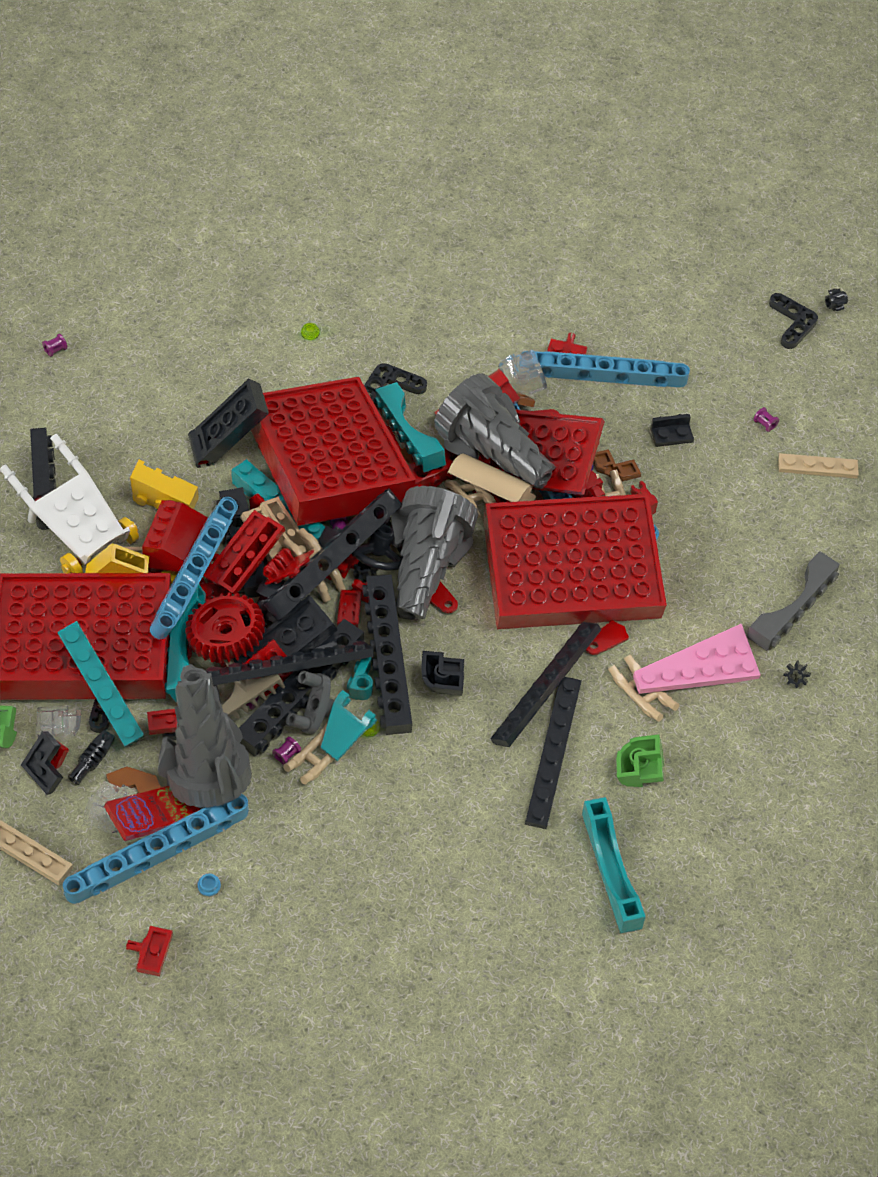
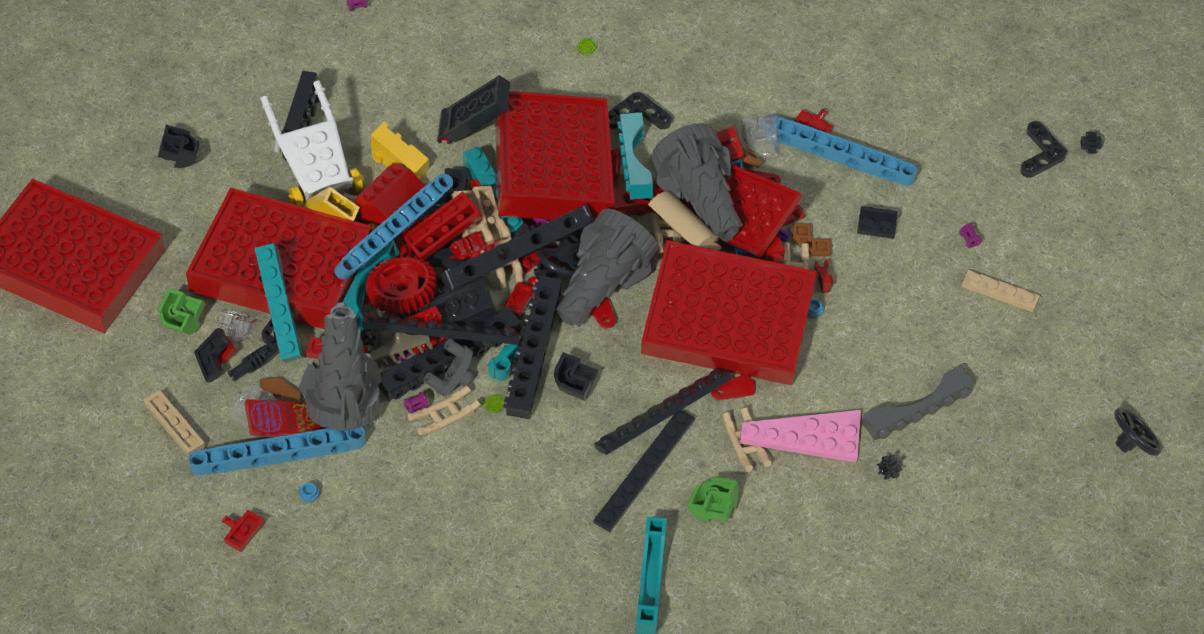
camera: 20 degrees right, 0 degrees up
(344, 727) = (471, 397): teal flag -> none

